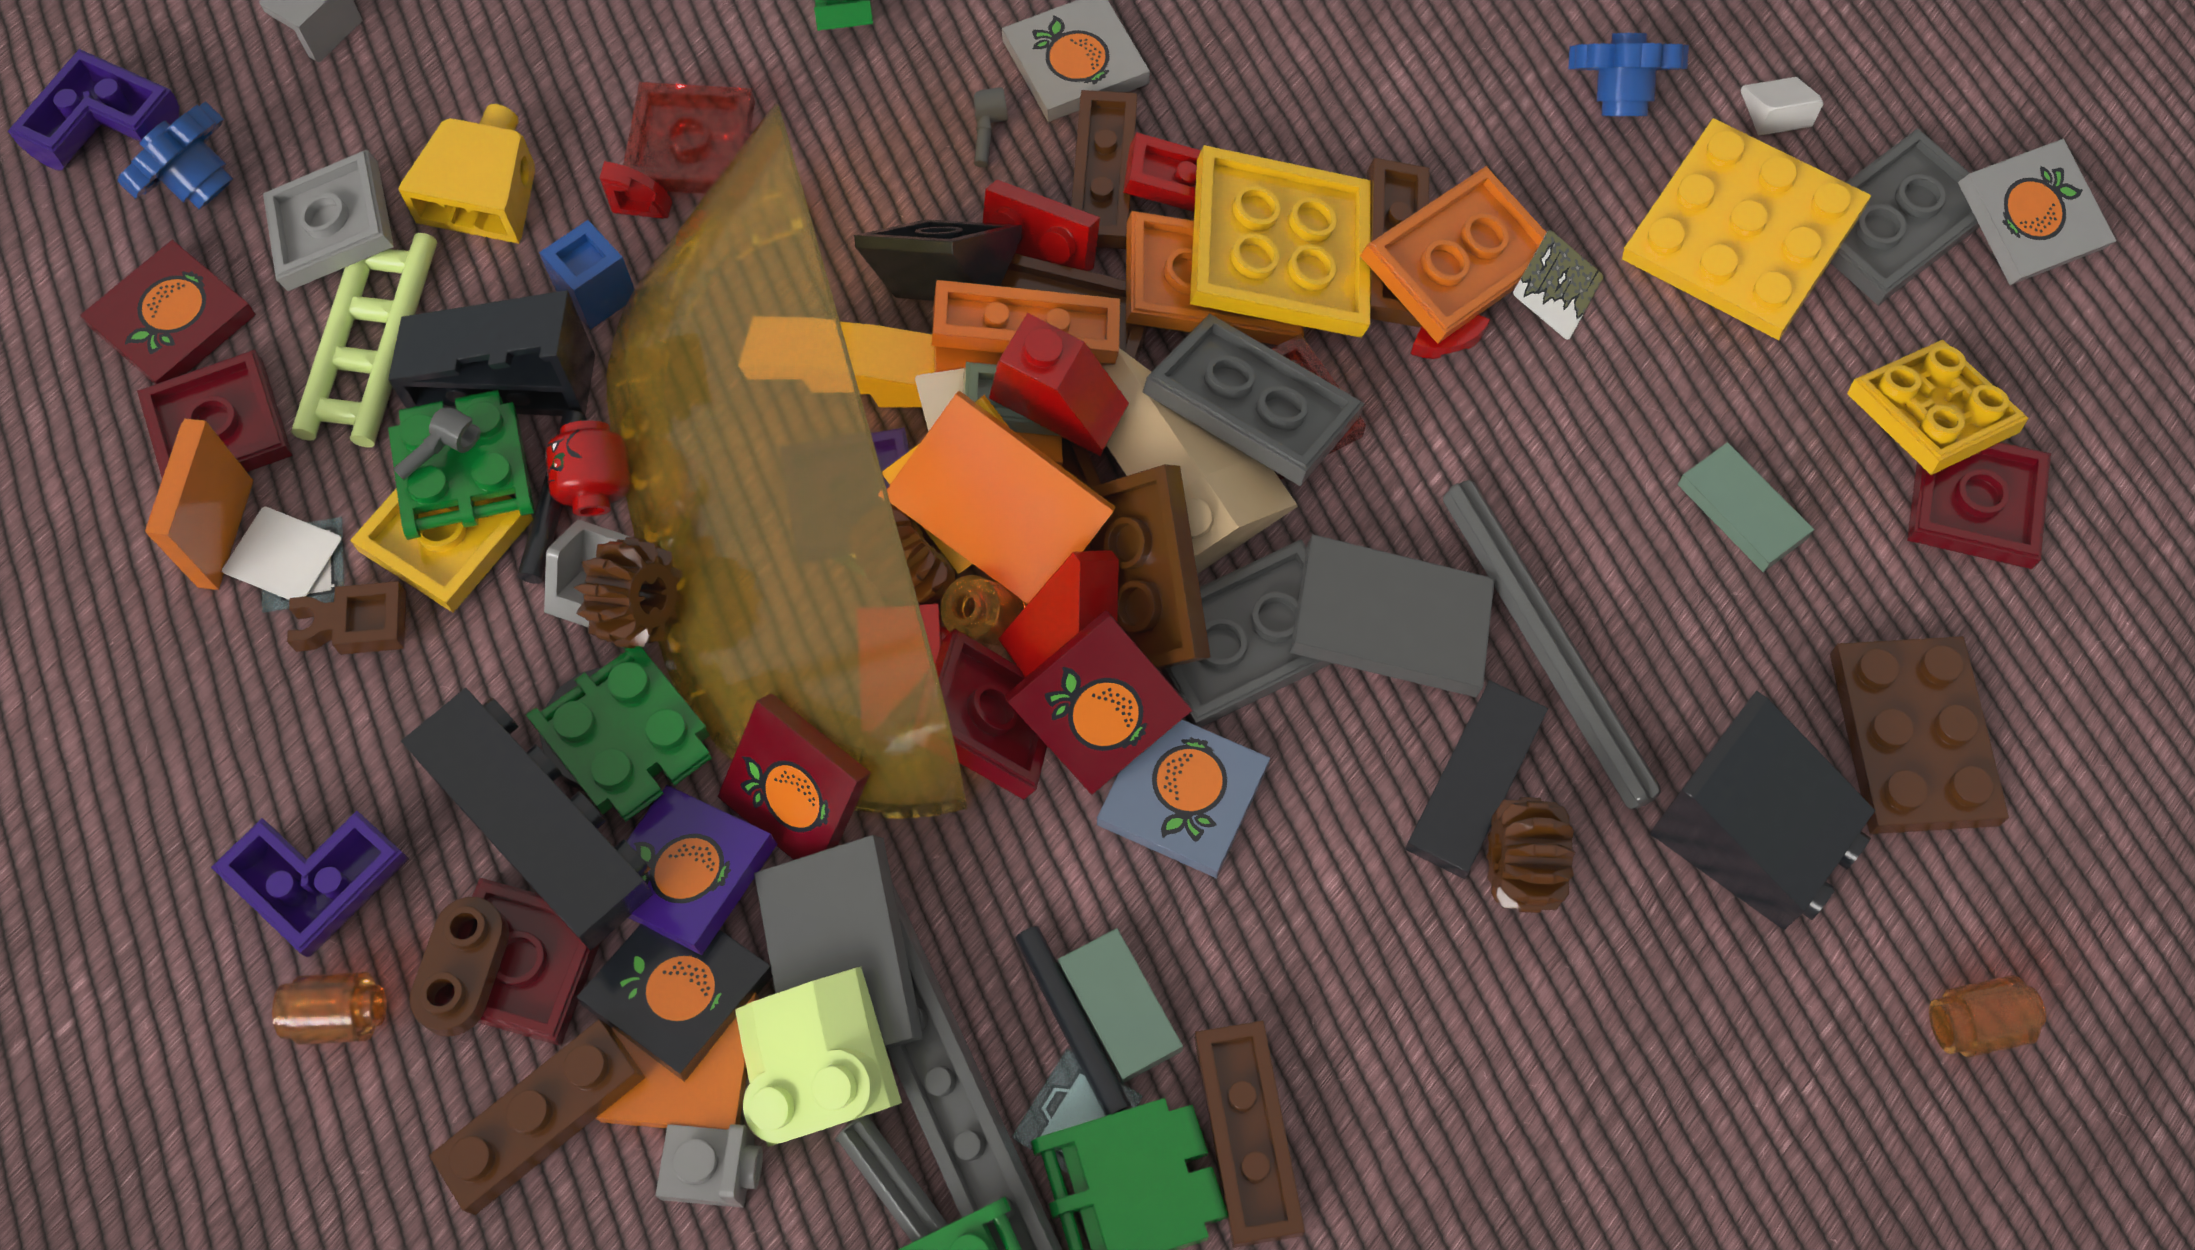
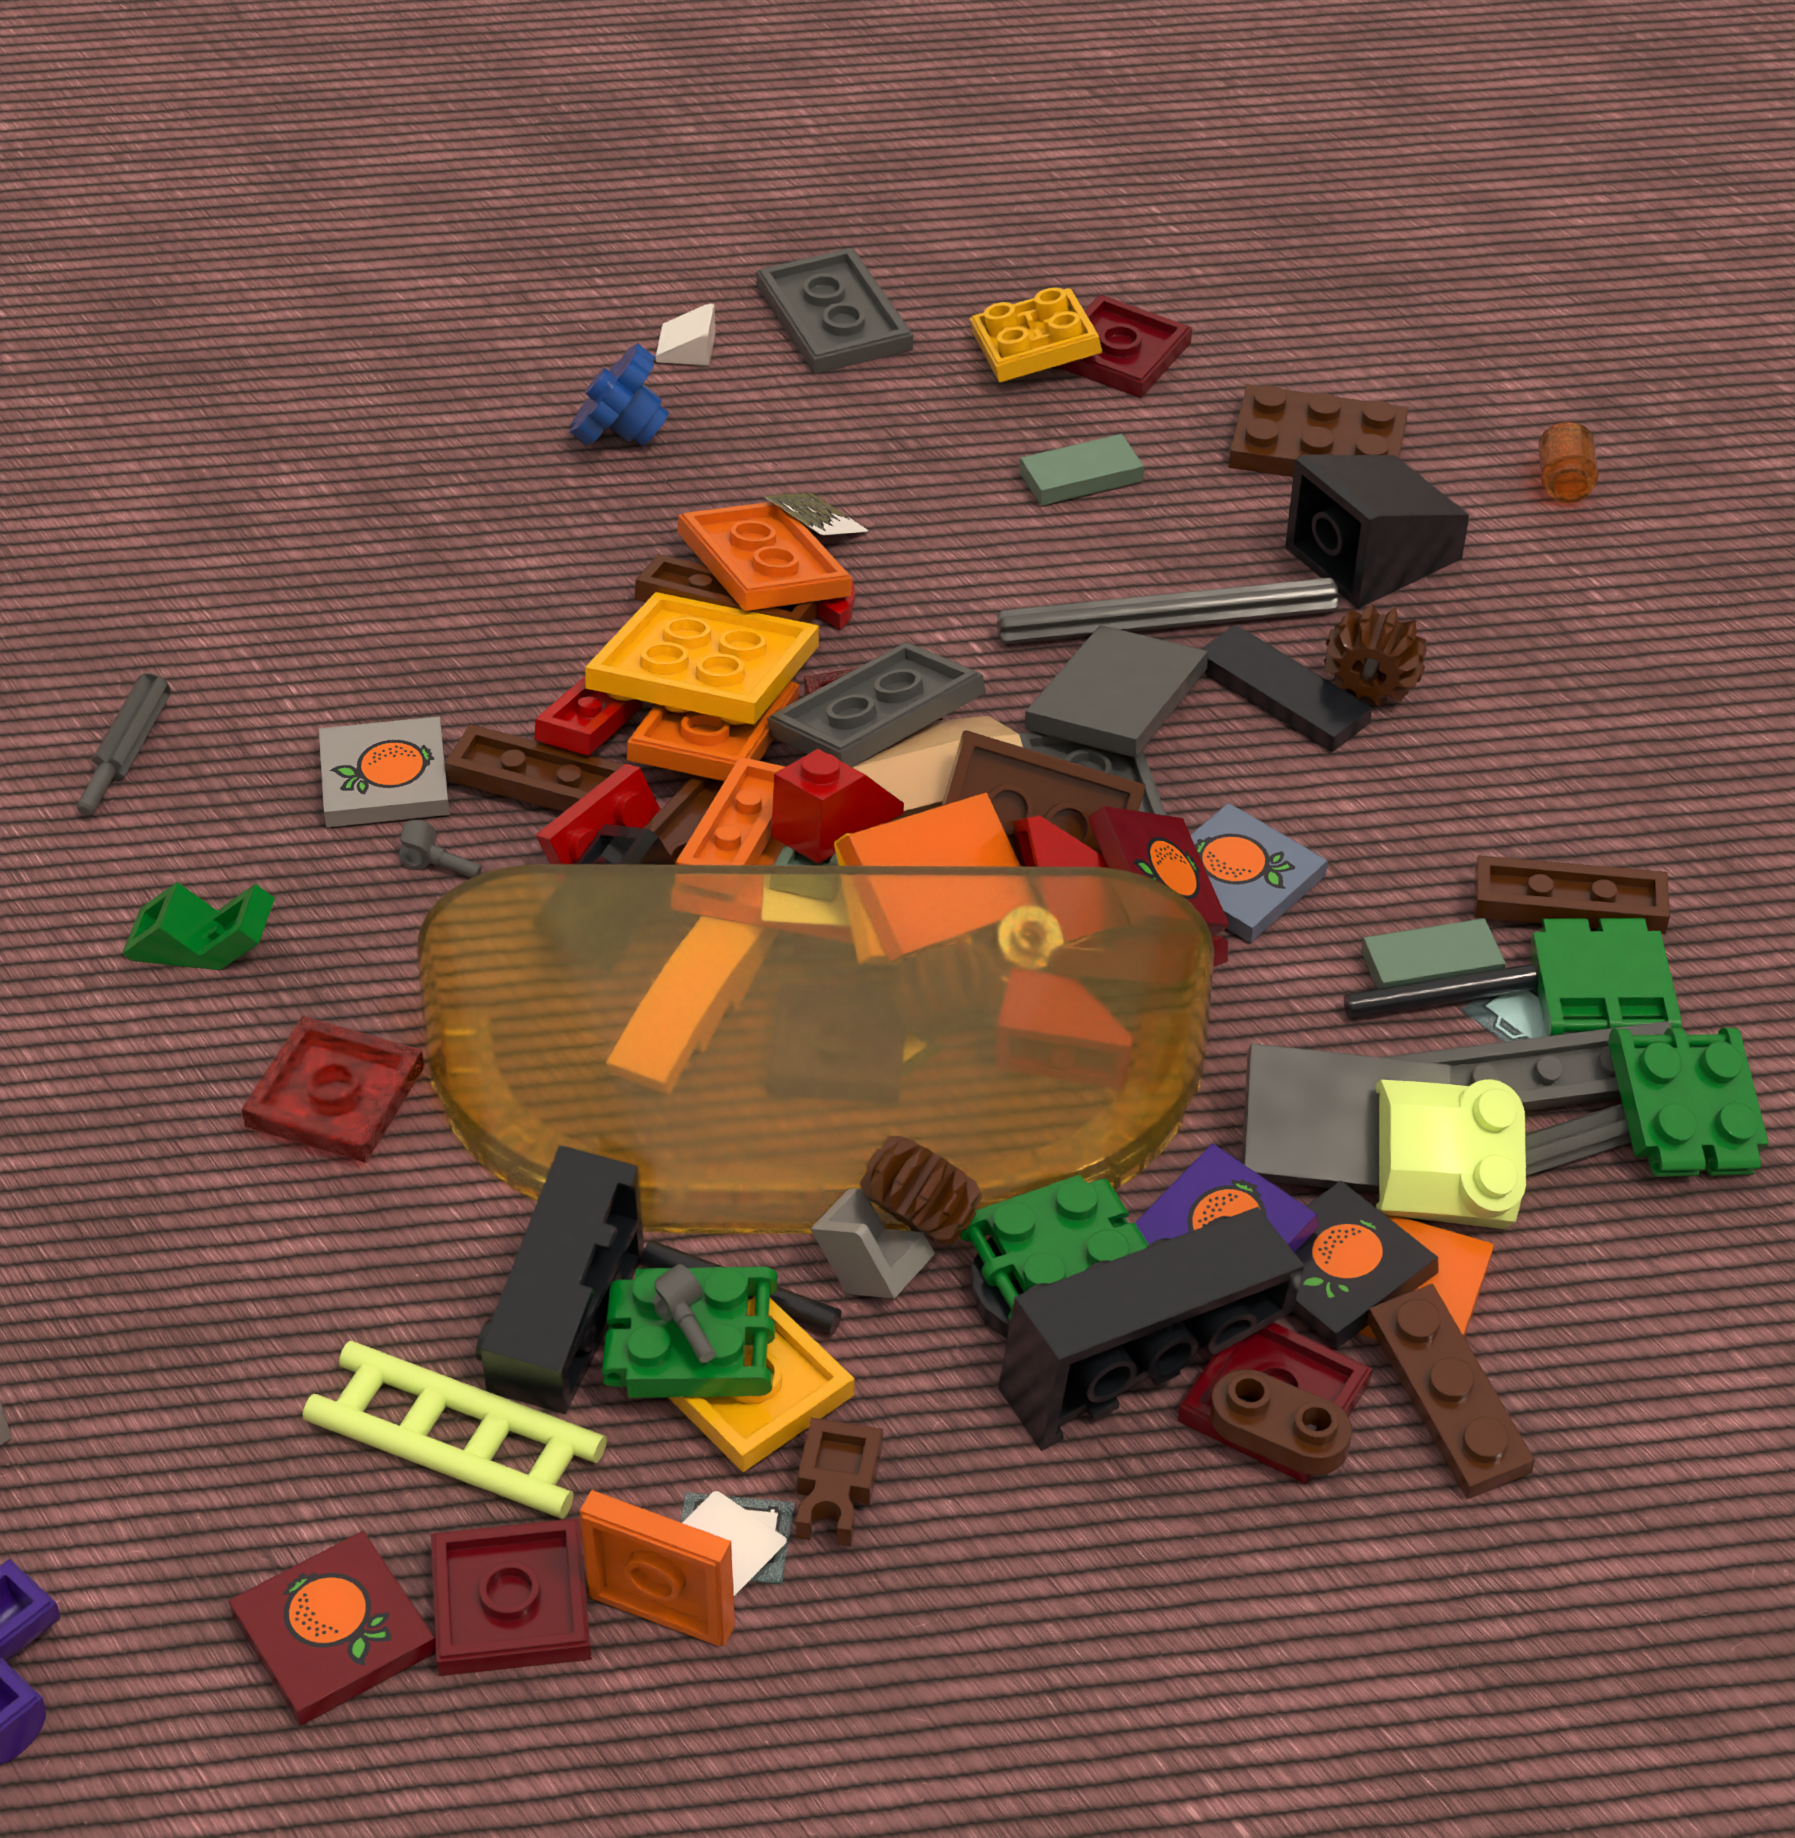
camera: 75 degrees left, 20 degrees down
(180, 159) = (122, 1557): blue plant -> none
(312, 895) = (1160, 1548): dark purple brick -> none
(327, 220) = (282, 1433): light grey tile -> none
(329, 1008) = (1294, 1550): clear orange brick -> none
(473, 177) = (295, 1280): yellow torso -> none
(588, 467) = (737, 1225): red head -> none
(590, 272) = (486, 1192): blue panel -> none
(634, 192) = (382, 1150): red tile -> none
(709, 1165) = (1524, 1266): light grey bracket -> none
(792, 780) = (1165, 1111): dark red tile -> none
(1746, 228) = (812, 389): yellow plate -> none
(2036, 211) = (874, 231): light grey tile -> none

